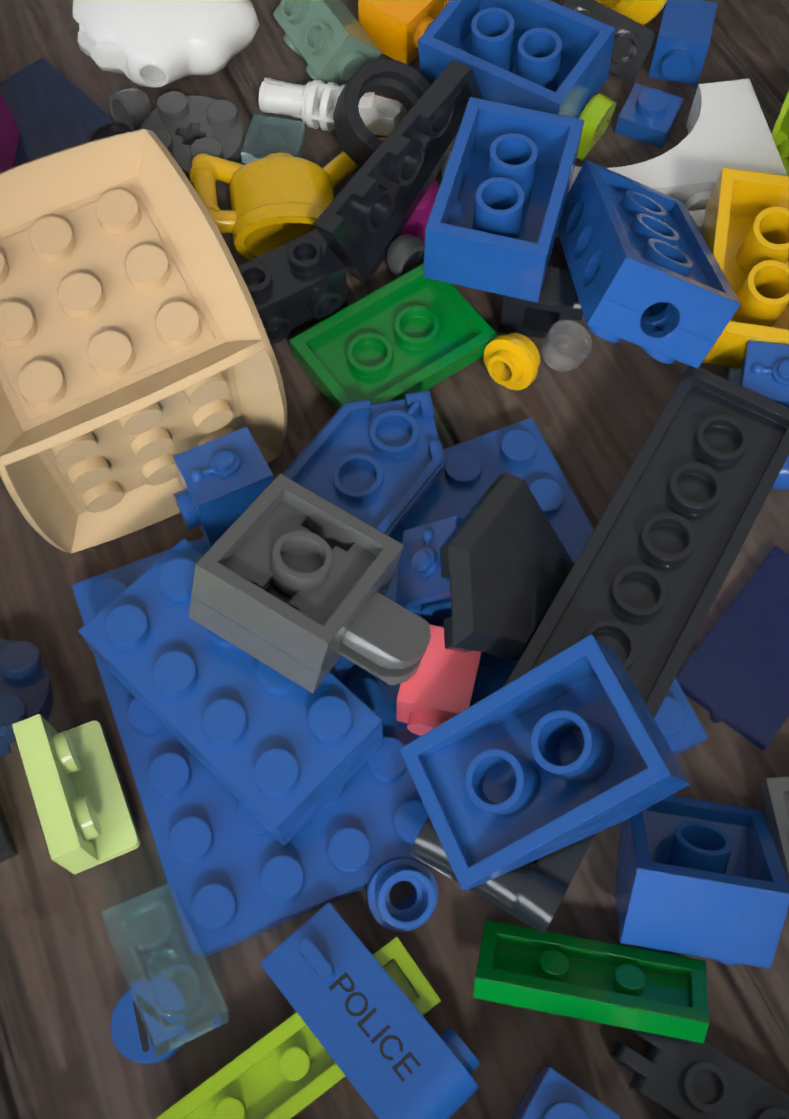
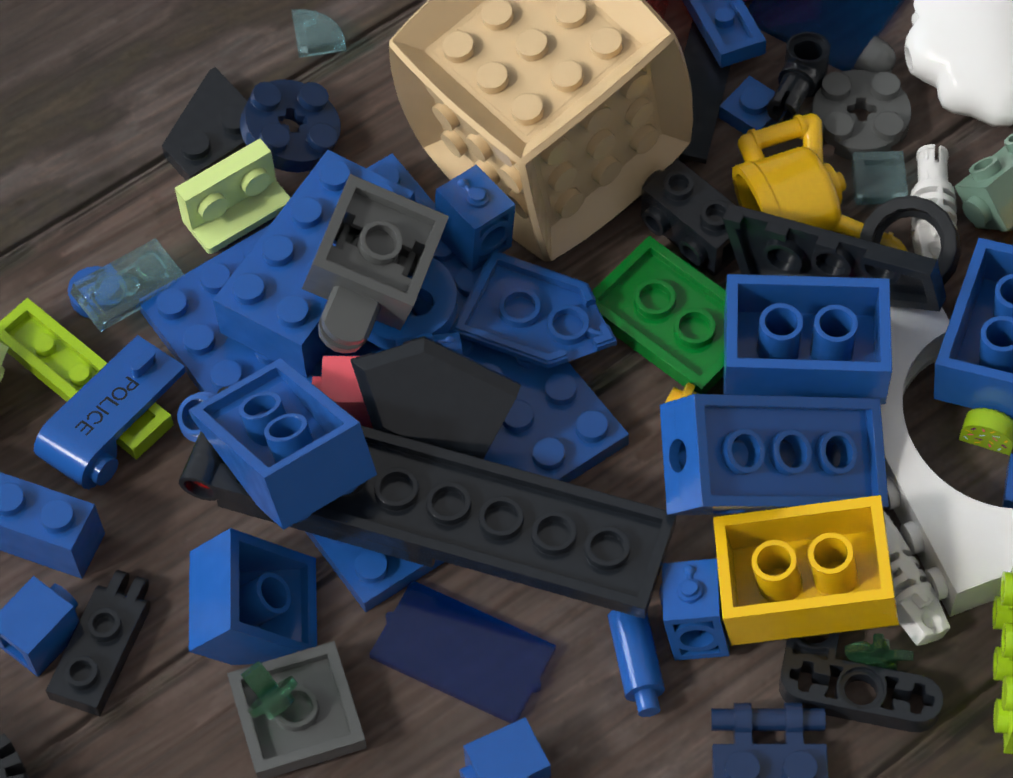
camera: 80 degrees right, 5 degrees down
(593, 981) = (161, 543): green plate -> none

